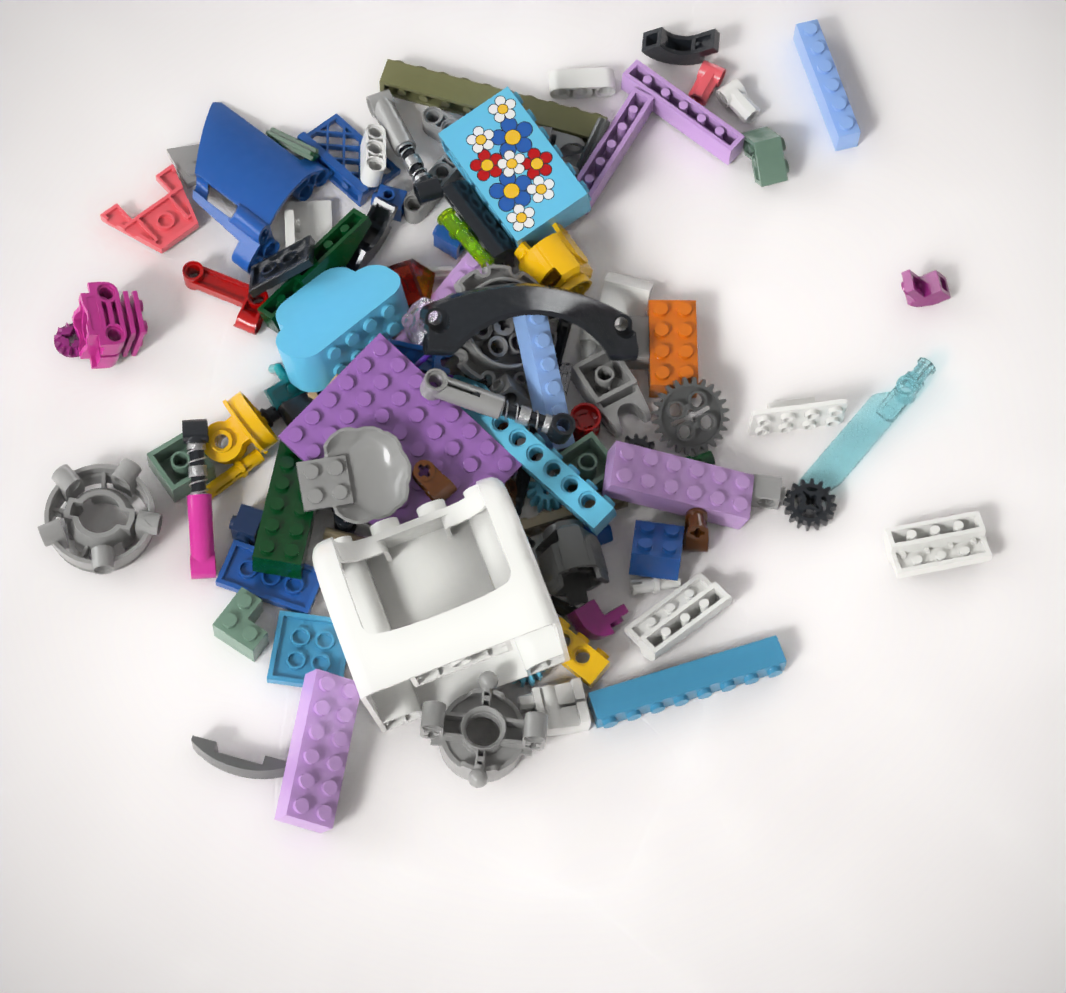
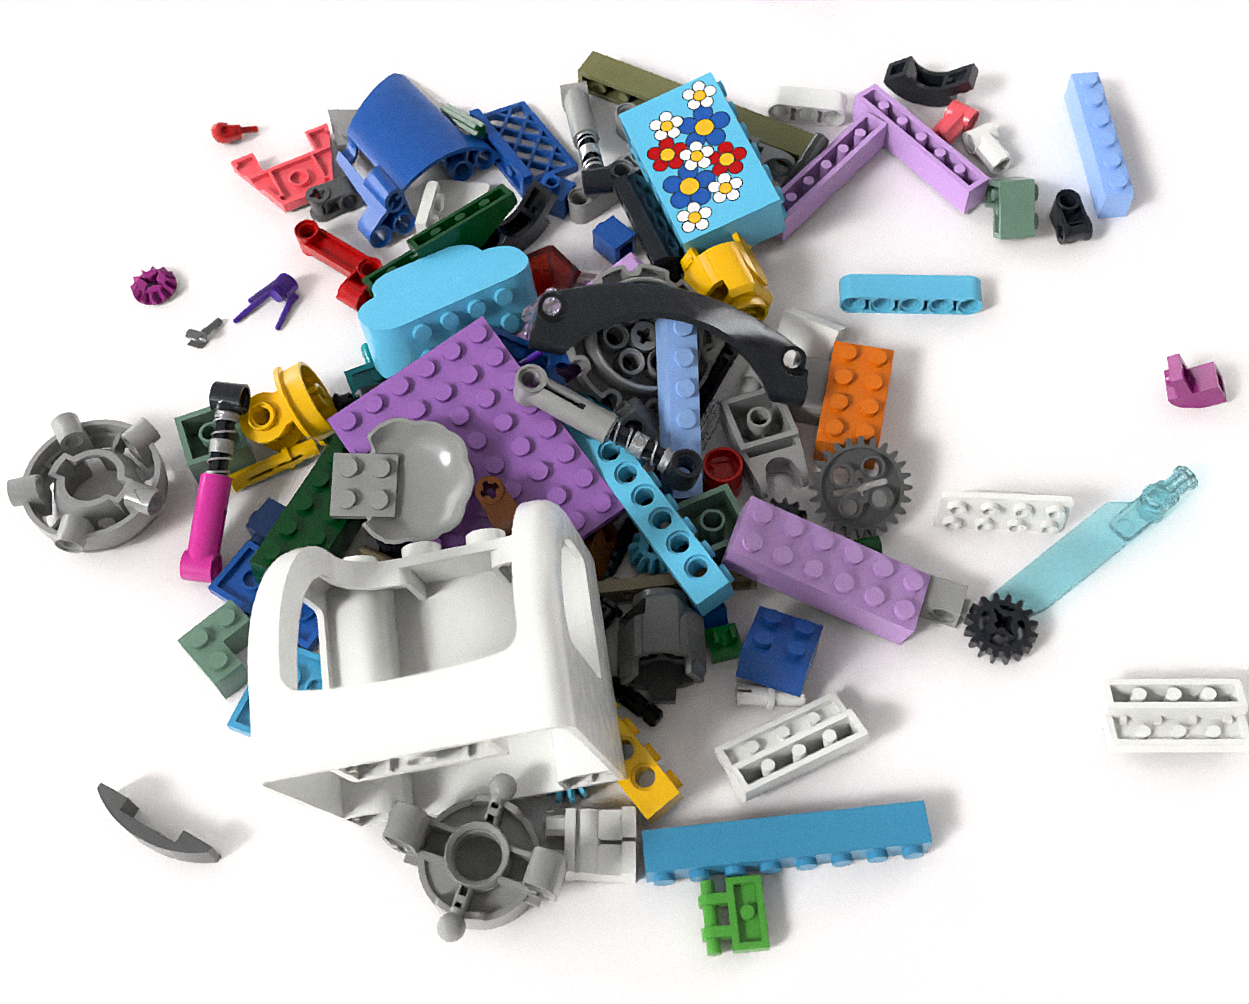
camera: 20 degrees right, 5 degrees down
(84, 186) = (226, 133): none -> red piece
(108, 324) = (183, 269): dark pink piece -> none
(128, 380) = (199, 338): none -> dark grey hand
(183, 327) = (280, 289): none -> dark purple plant
(203, 234) = (335, 197): none -> dark grey piece
(281, 266) = (401, 234): black tile -> none
(318, 751) = (237, 867): lavender brick -> none
(373, 155) = (547, 141): white beam -> none
(459, 231) = (621, 229): clear neon green pin -> none
(593, 623) = (672, 735): magenta brick -> none
(614, 551) = (723, 643): none -> green tile
(670, 735) = (745, 911): none -> bright green plate
(696, 531) = (838, 635): reddish brown piece -> none
(698, 246) = (910, 294): none -> medium azure beam
(813, 161) = (1070, 217): none -> black piece

